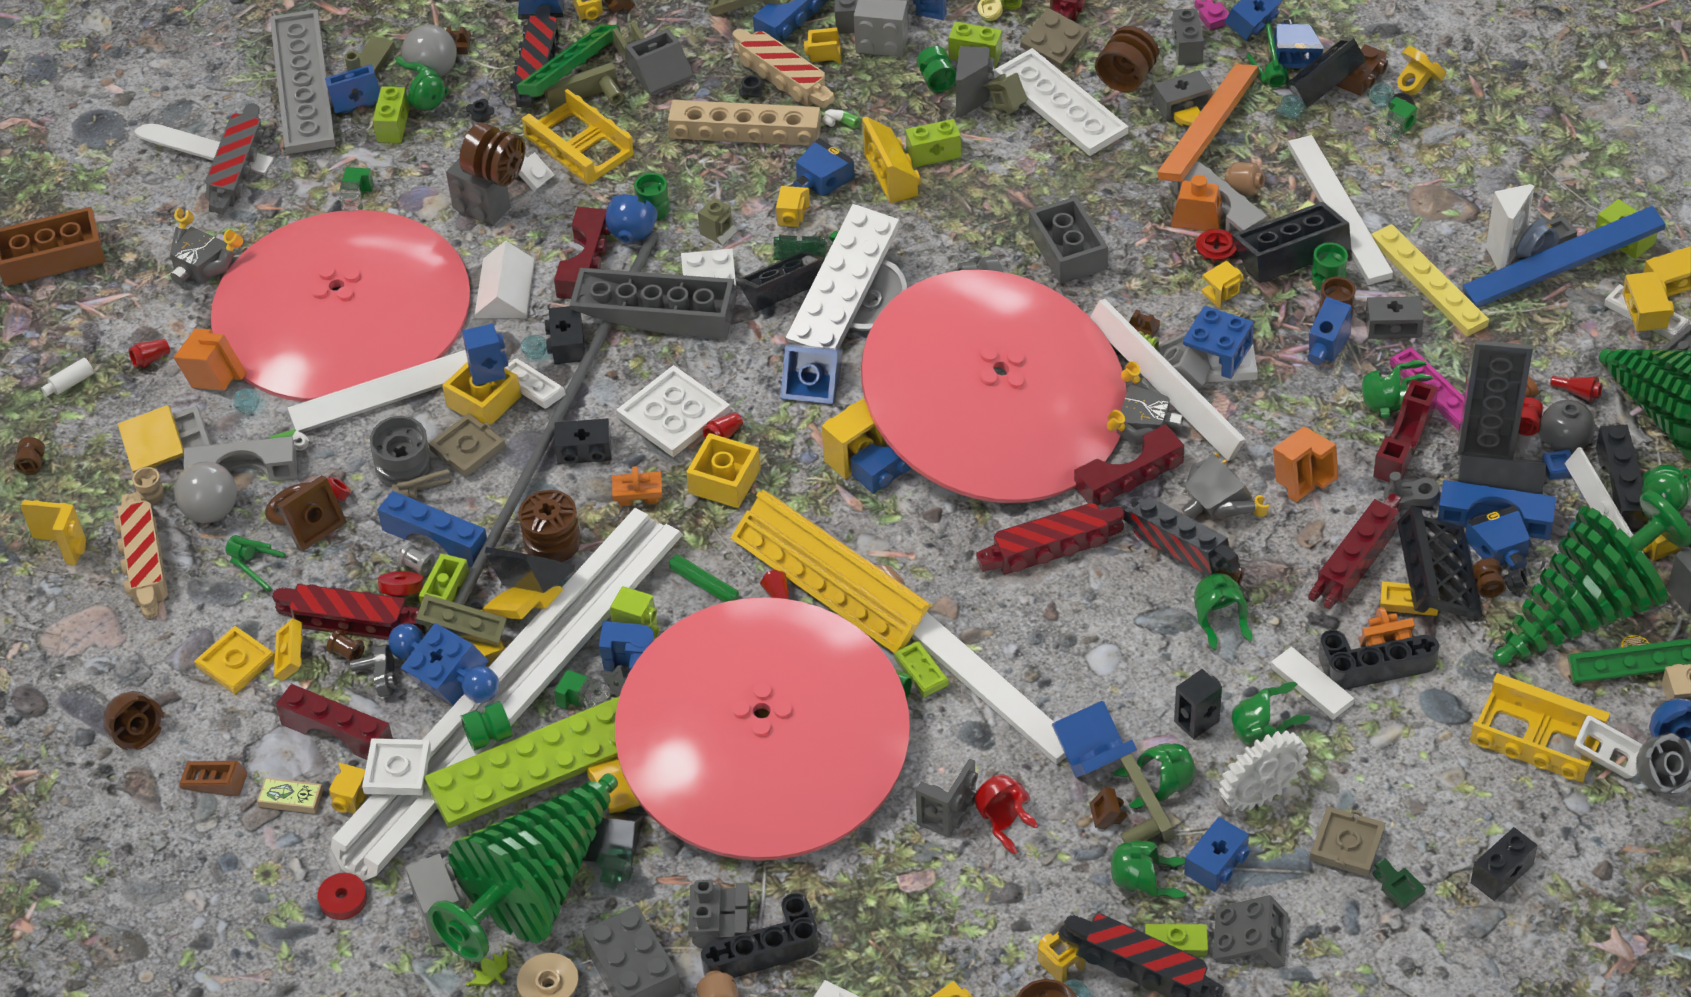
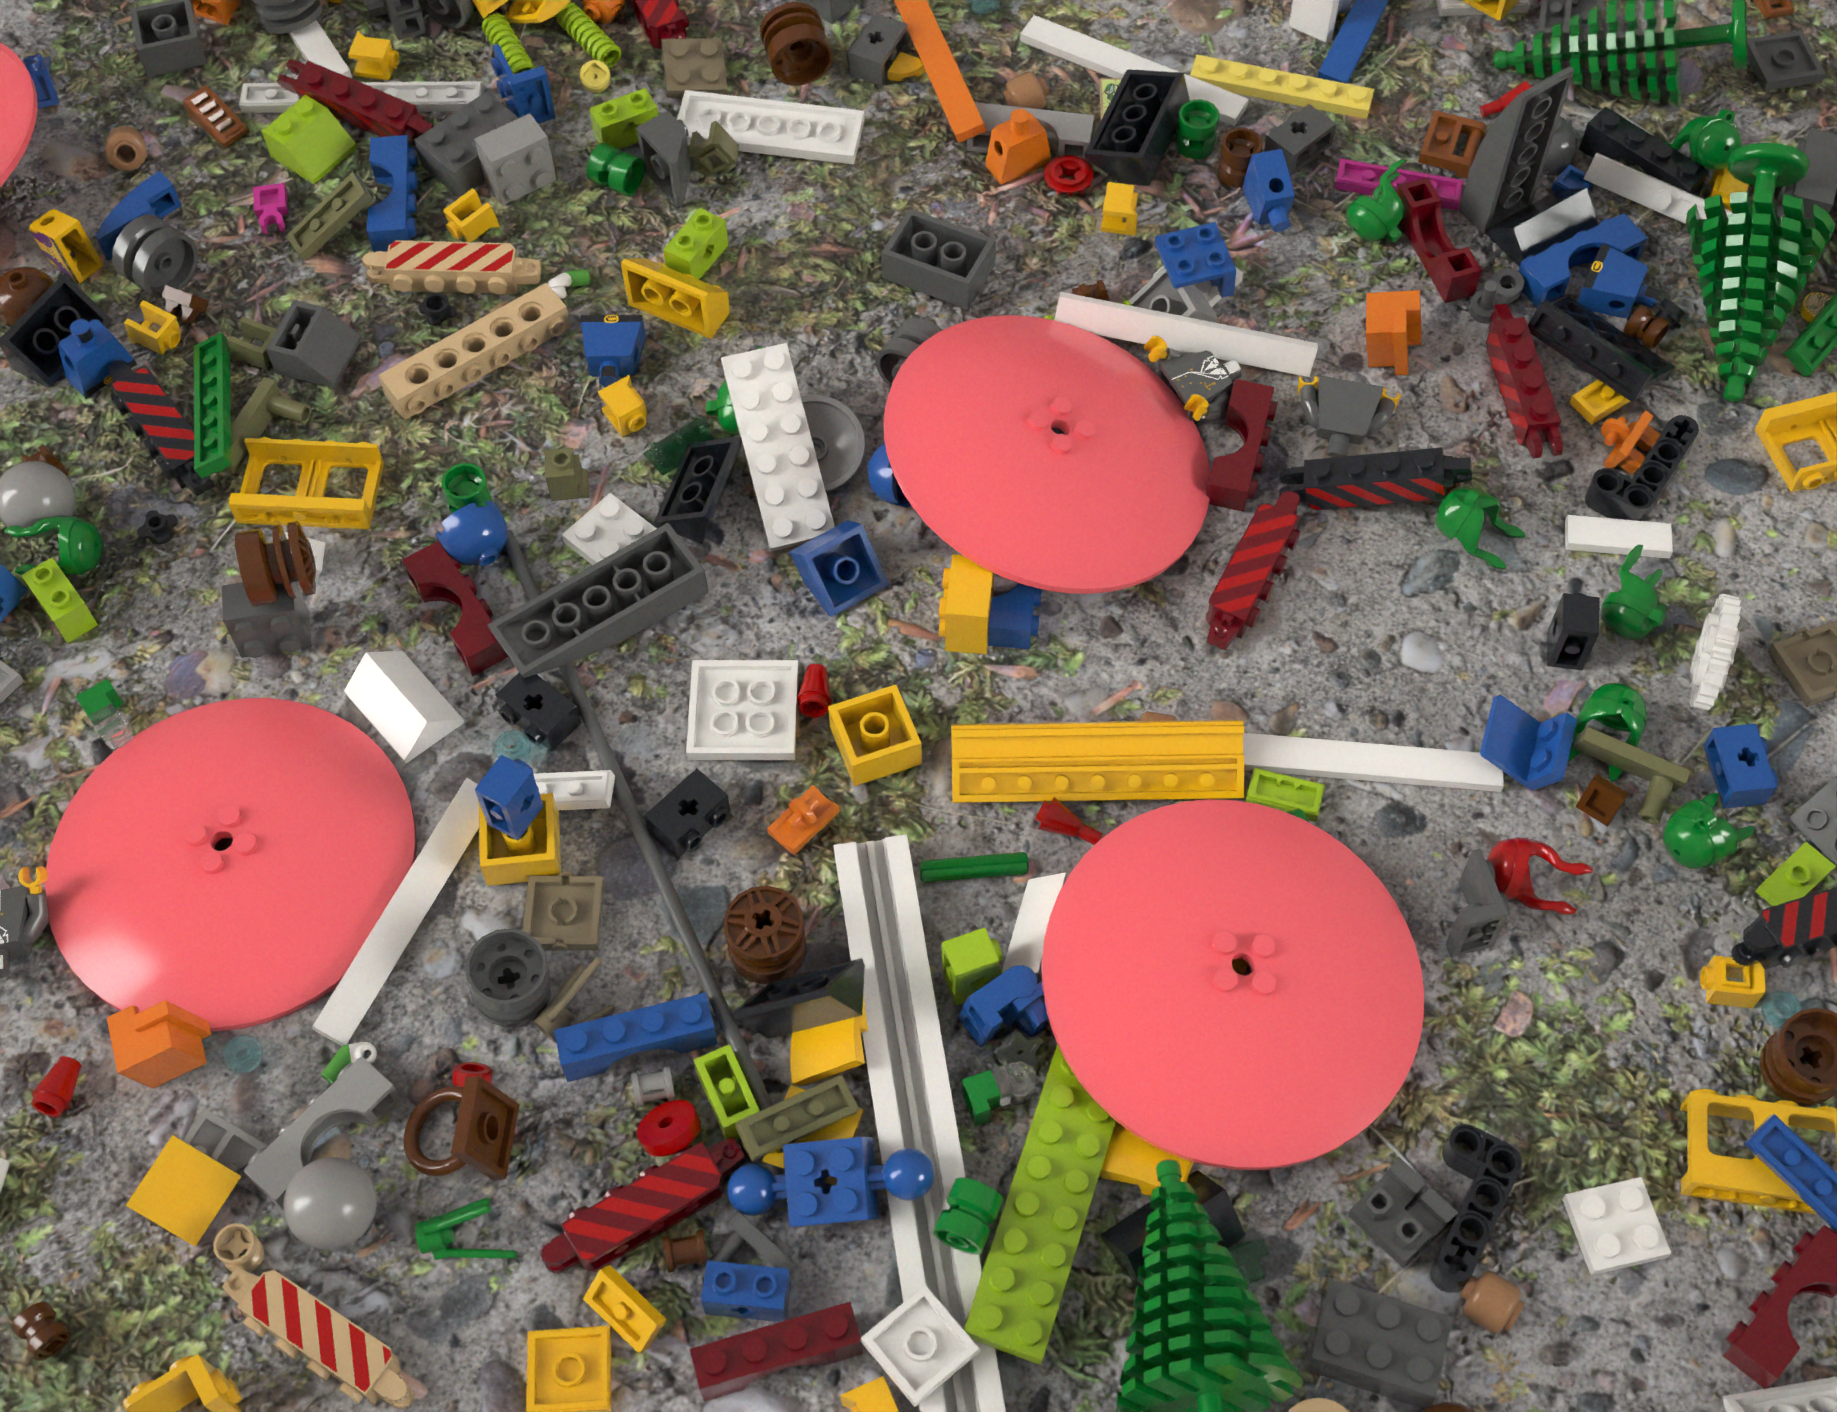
camera: 45 degrees left, 10 degrees up
(351, 684) = (746, 1291): none -> blue brick

